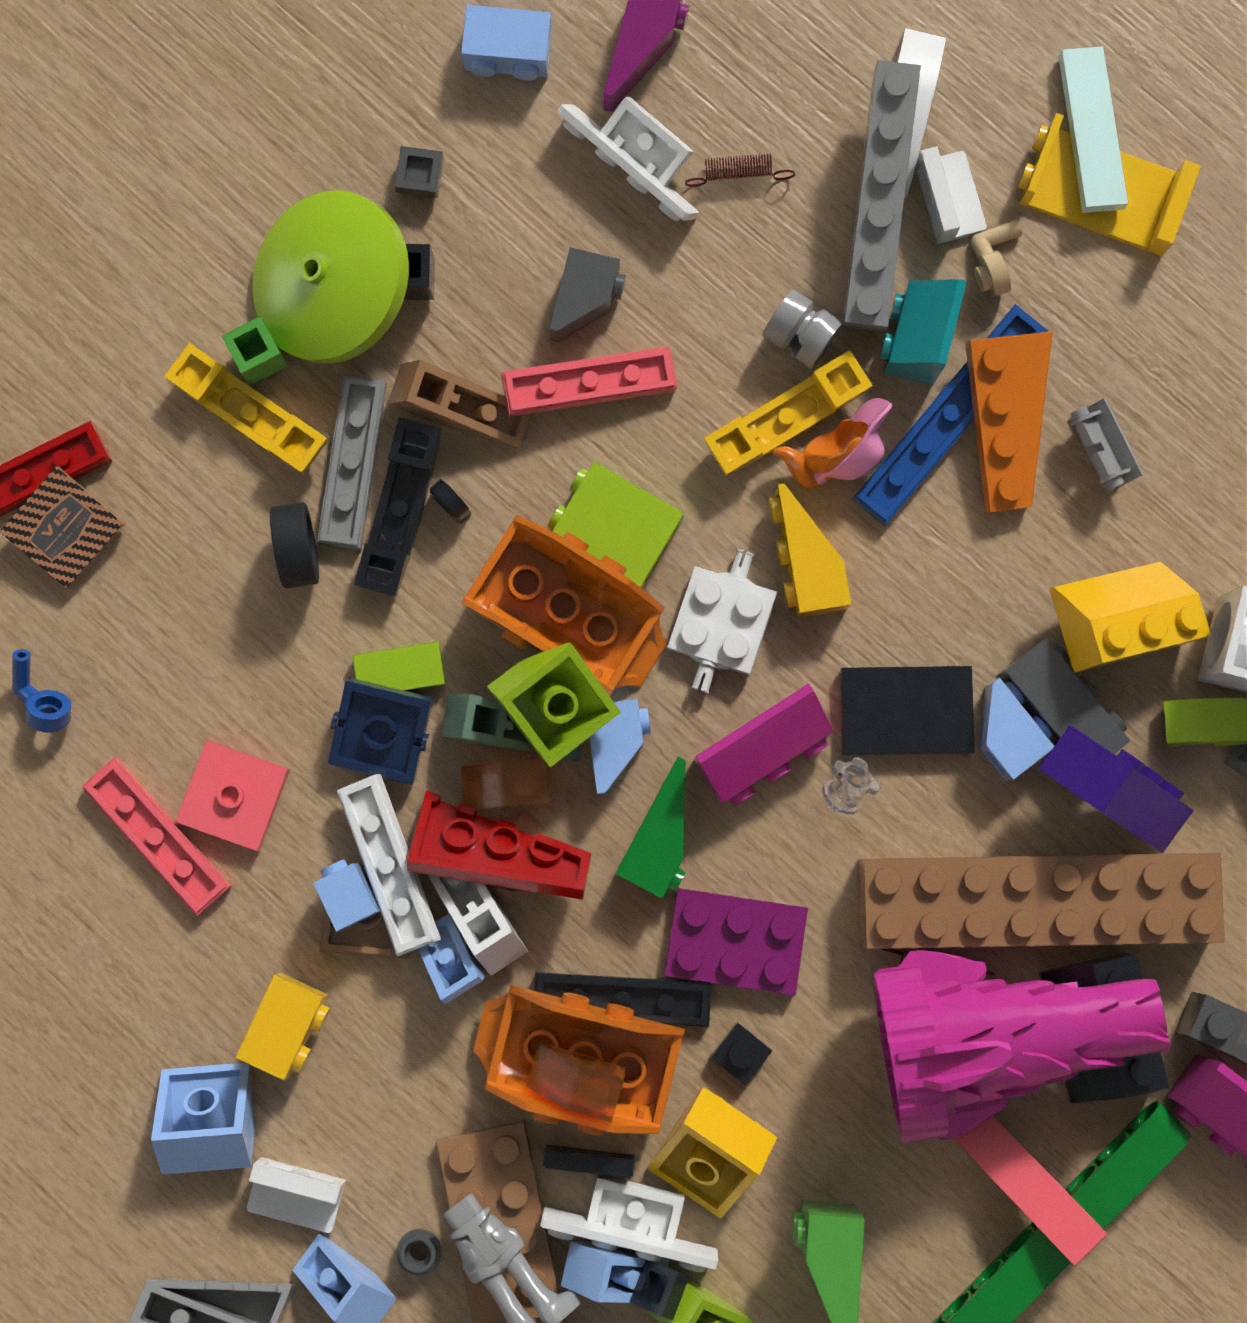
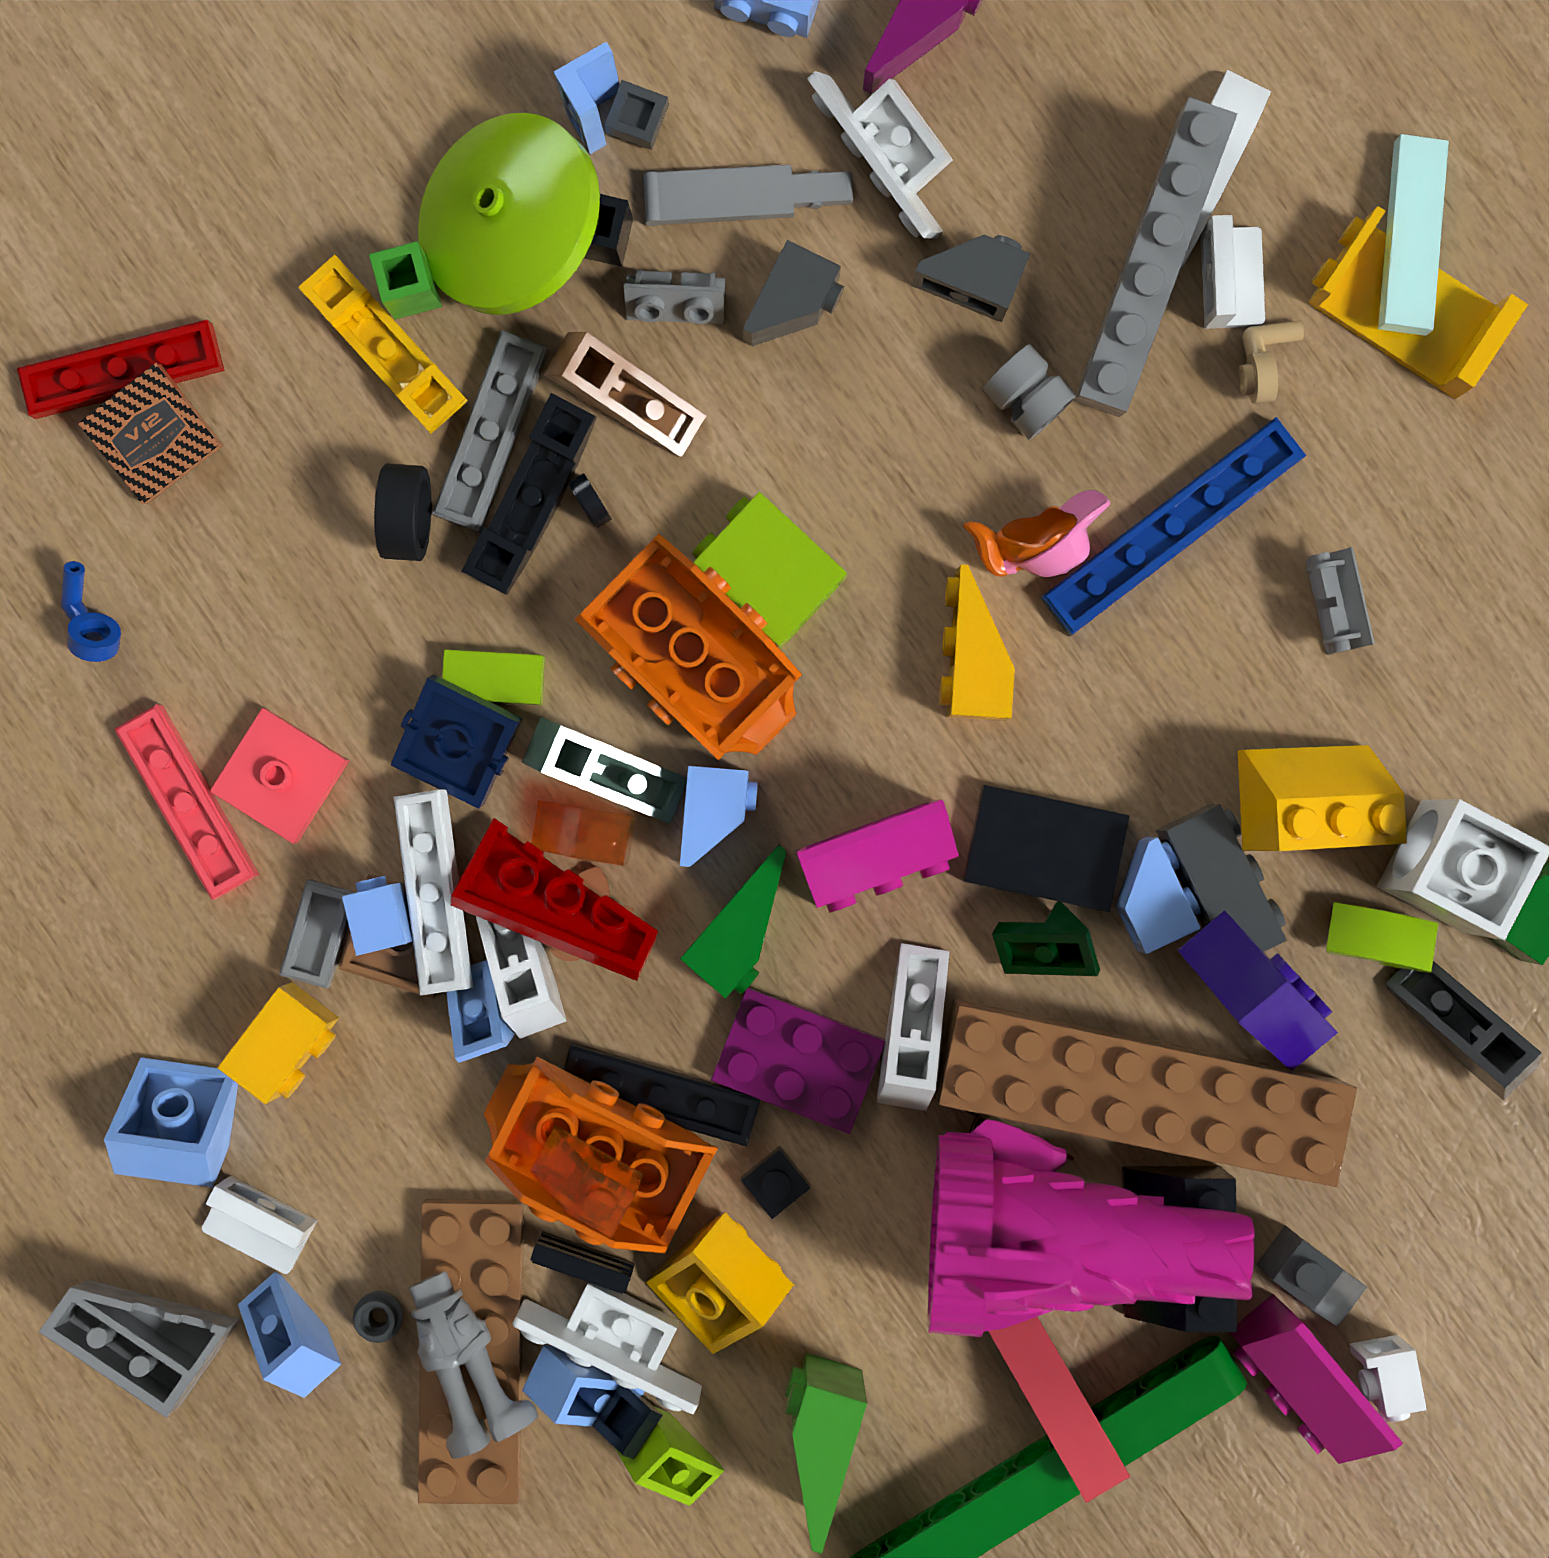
camera: 15 degrees right, 5 degrees up
(294, 926) = (316, 935): none -> light grey tile
(369, 164) = (583, 87): none -> light blue panel
(466, 320) = (654, 298): none -> light grey hinge
(519, 218) = (739, 193): none -> light grey piece
(554, 701) = (652, 755): lime slope -> none
(588, 381) = (775, 399): coral tile -> none
(722, 621) = (864, 702): white plate -> none
(734, 241) = (975, 274): none -> dark grey slope
(741, 174) = (999, 199): dark red piece -> none
(788, 414) = (991, 486): yellow slope -> none
(830, 891) = (914, 1028): none -> white slope
(849, 786) = (962, 919): clear brick -> none
(923, 329) = (1166, 423): teal slope -> none
(927, 794) = (1047, 948): none -> dark green slope
(1008, 408) = (1239, 535): orange wing -> none

